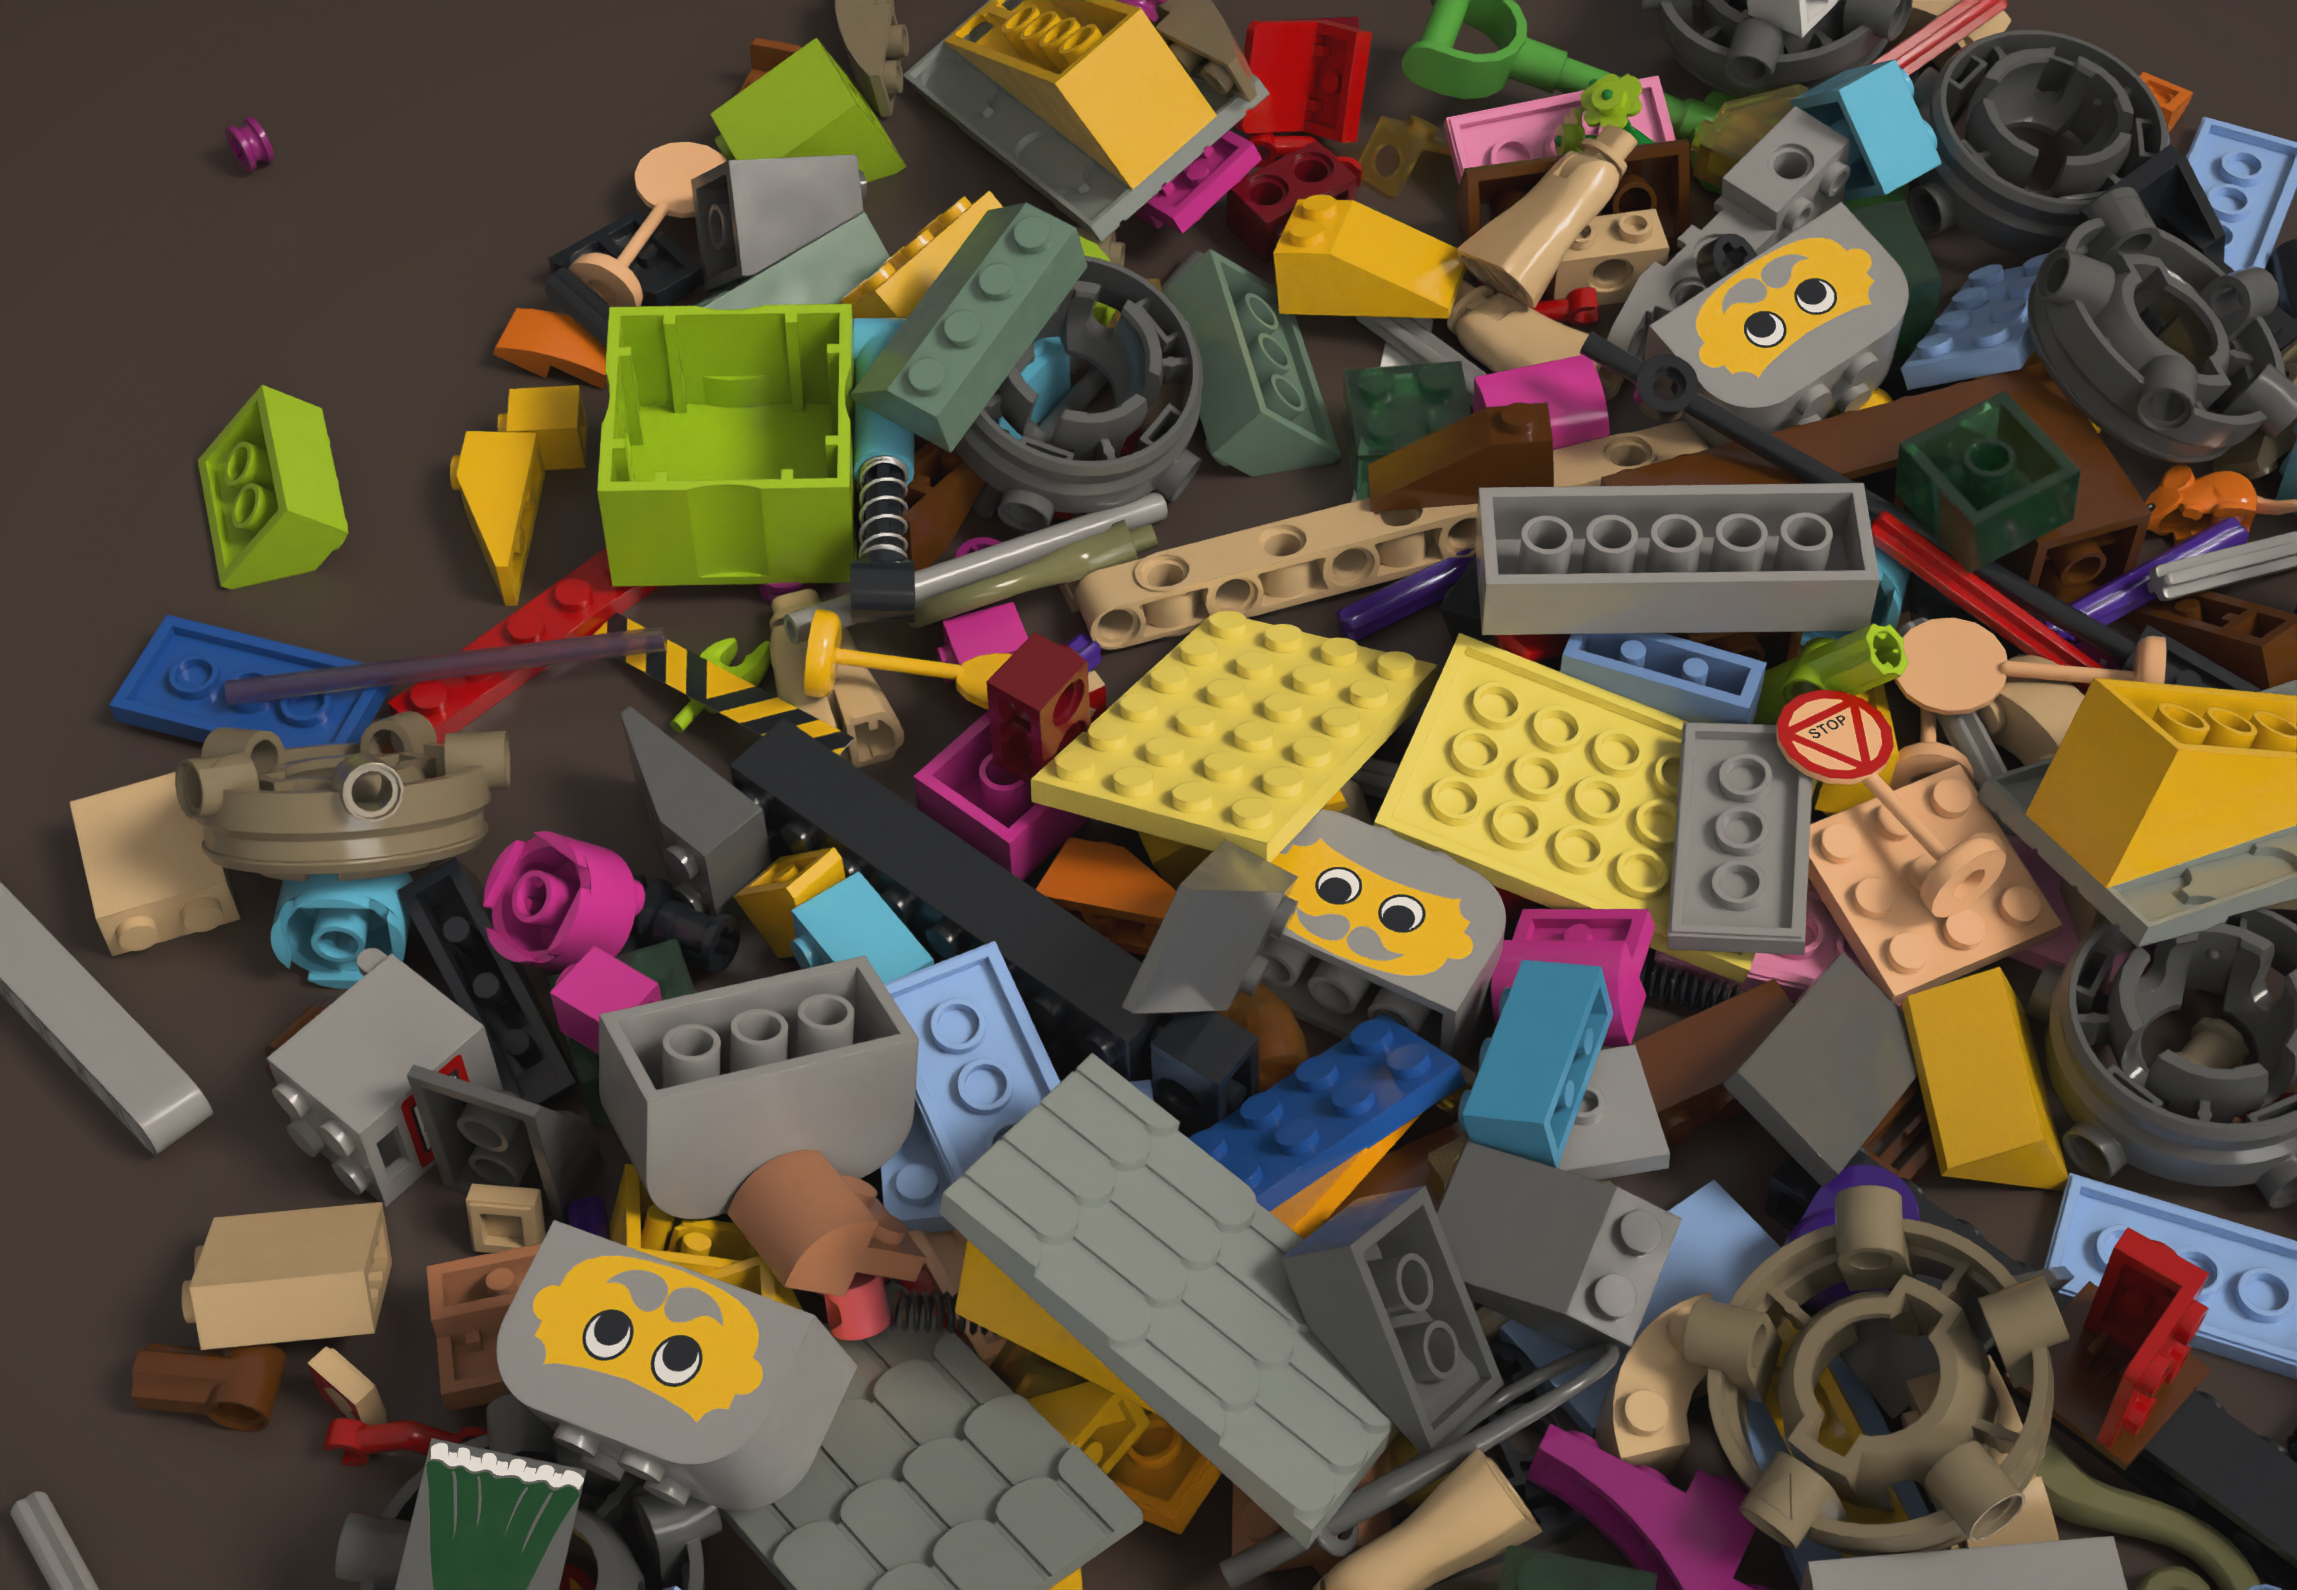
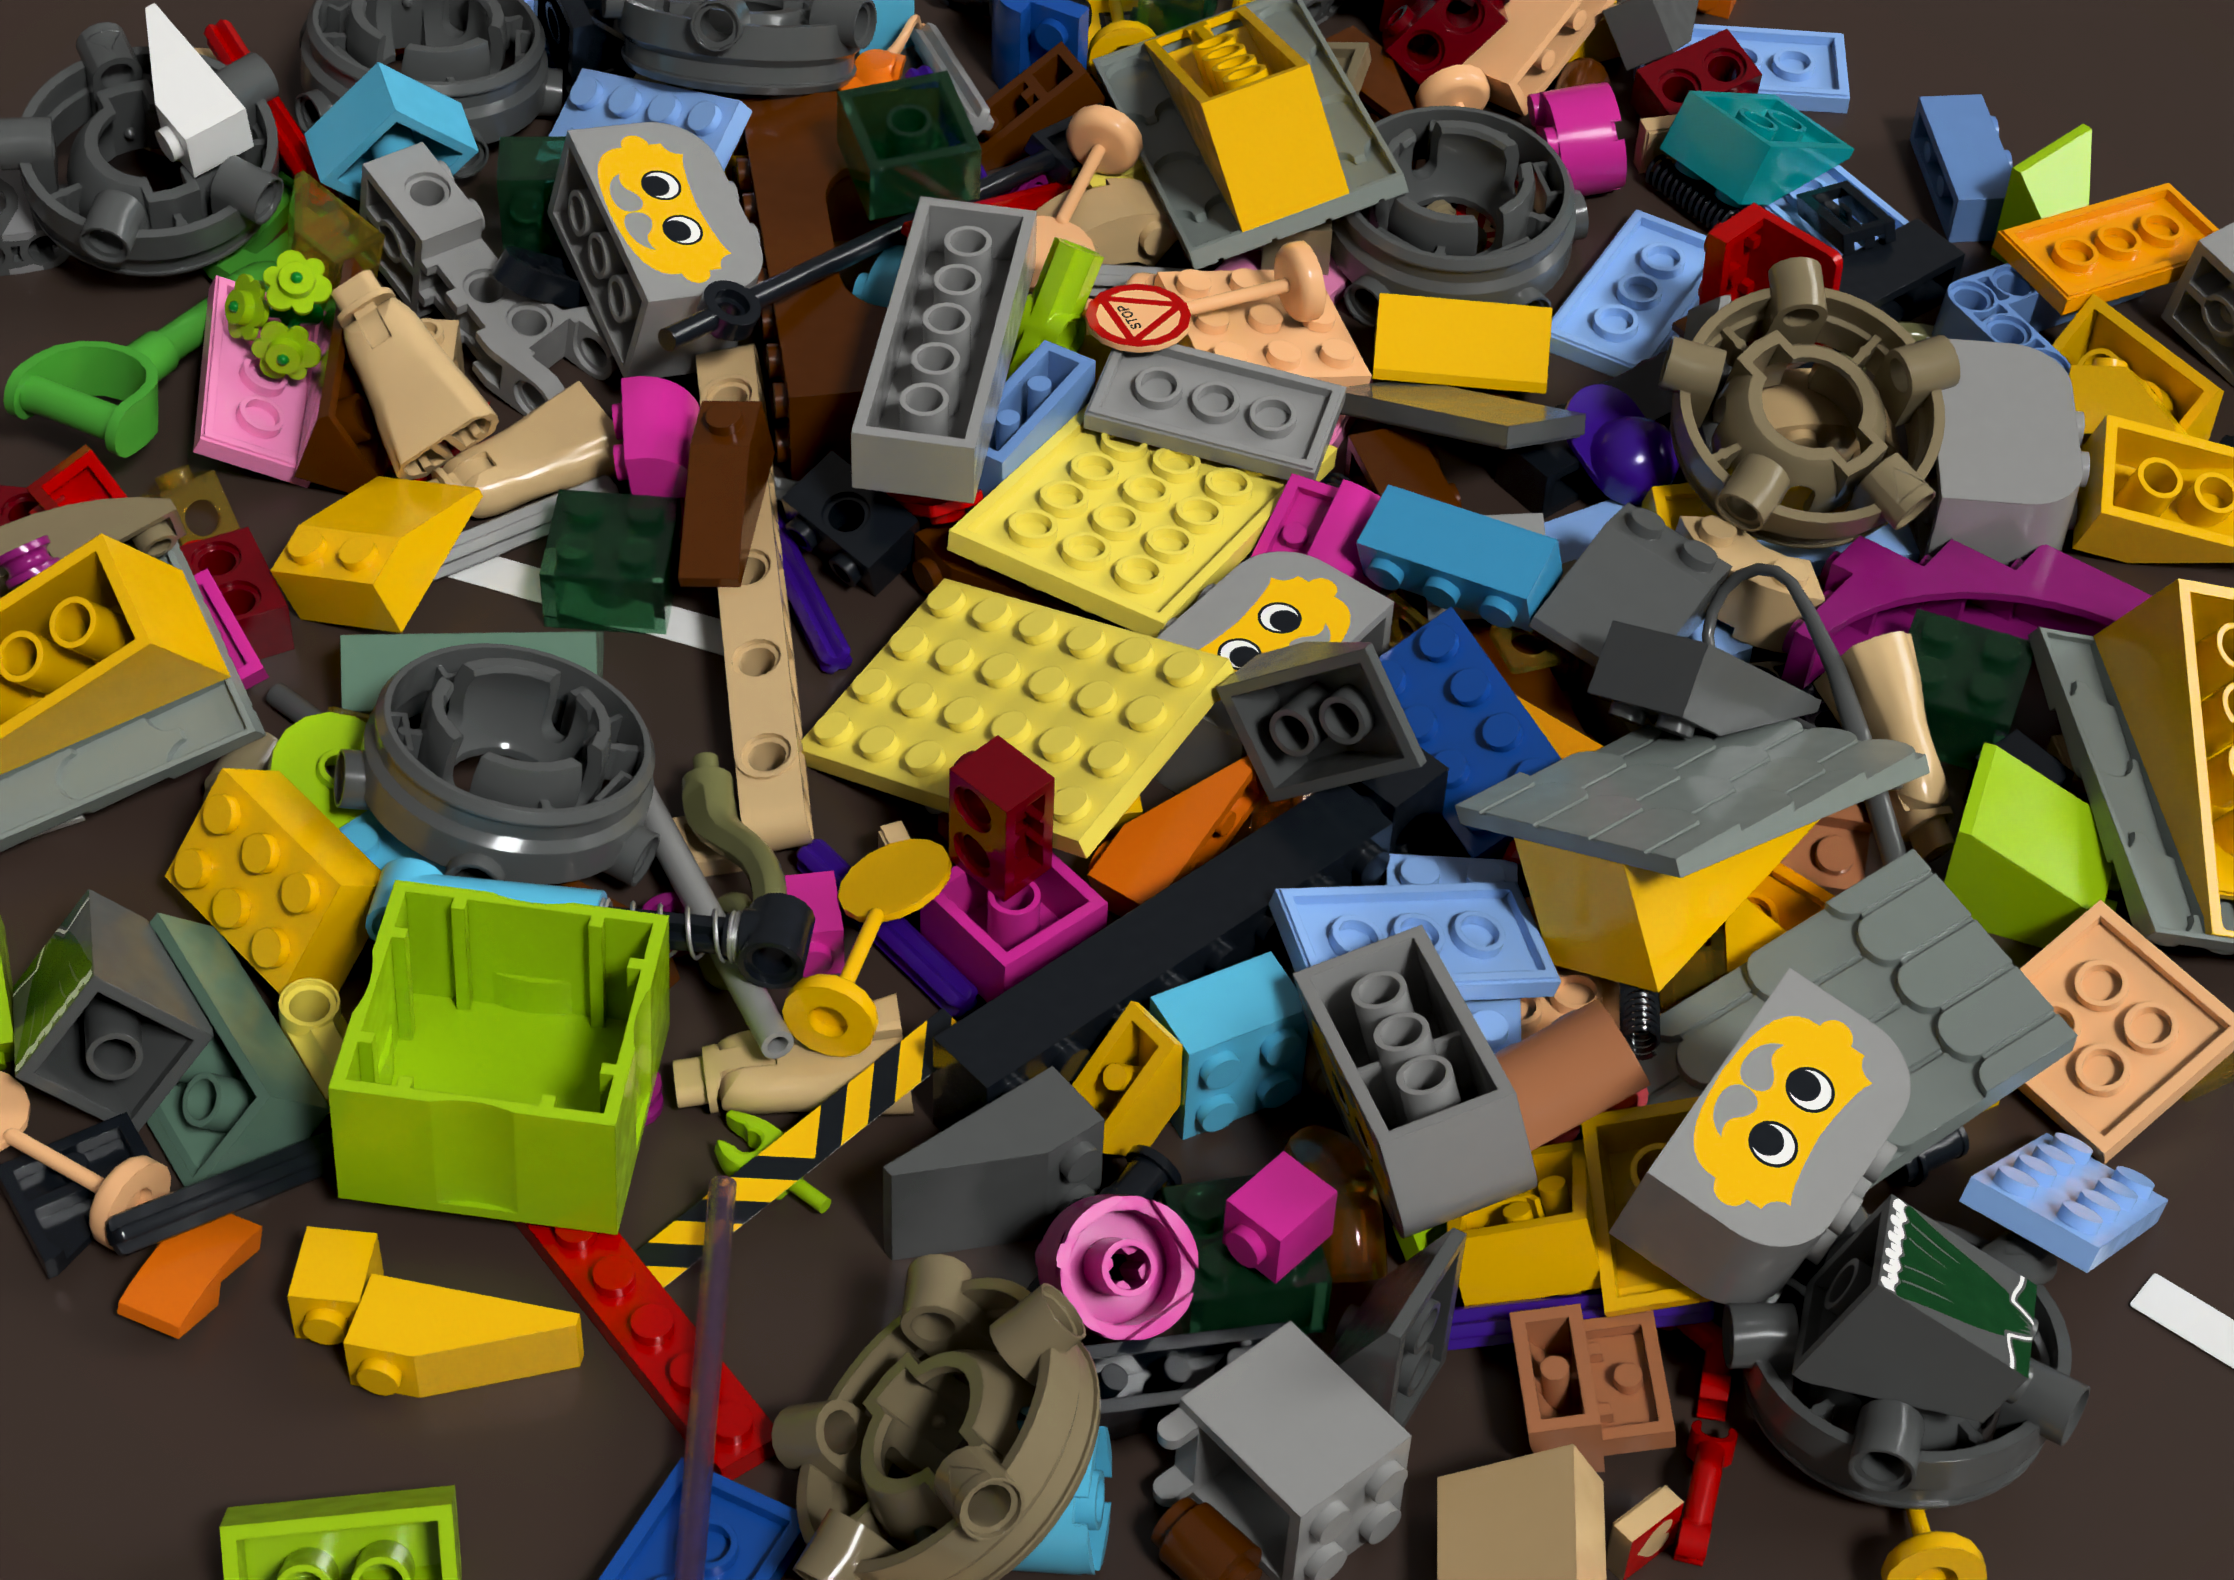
camera: 85 degrees left, 5 degrees down
(504, 1217) = (1457, 1386): tan tile -> none
(974, 323) = (486, 765): sand green slope -> none

